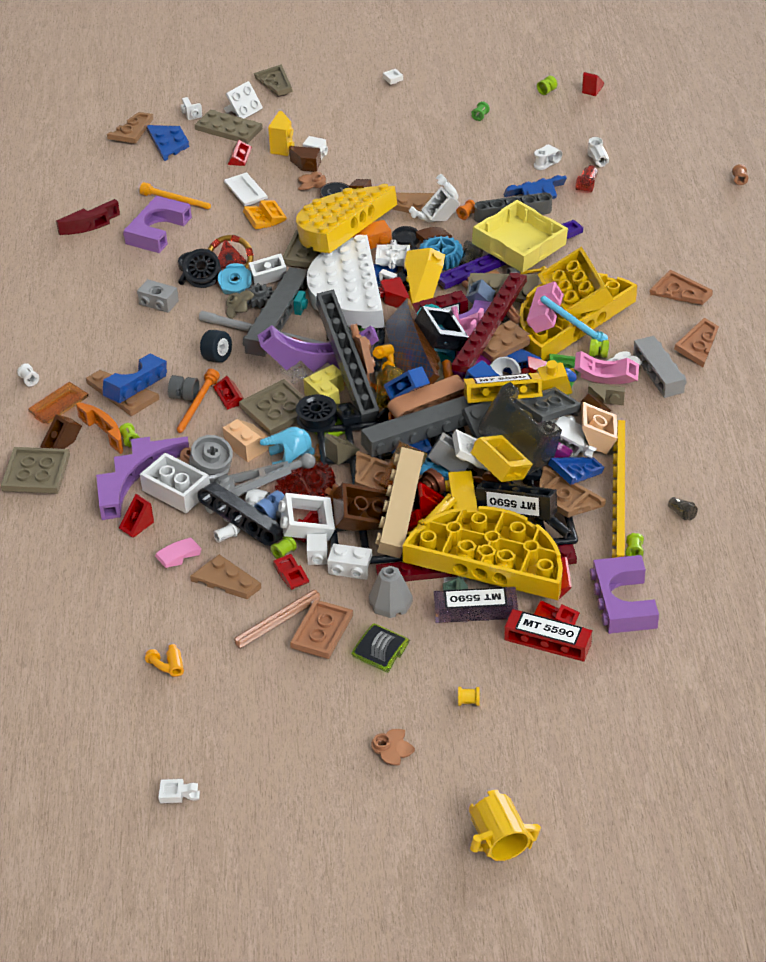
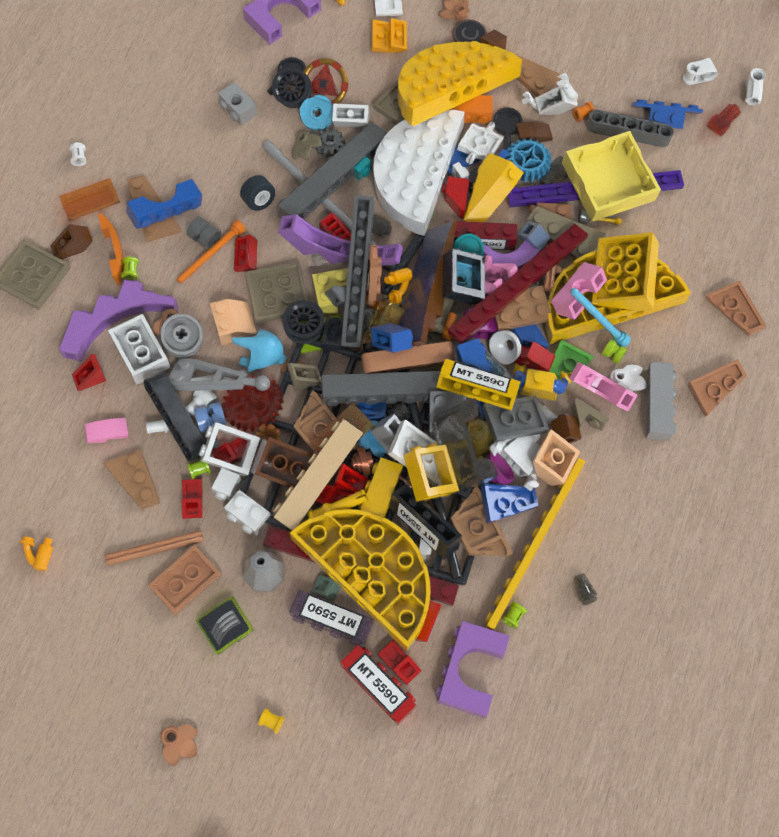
camera: 20 degrees right, 25 degrees up
(336, 379) = (336, 295): none -> dark grey slope

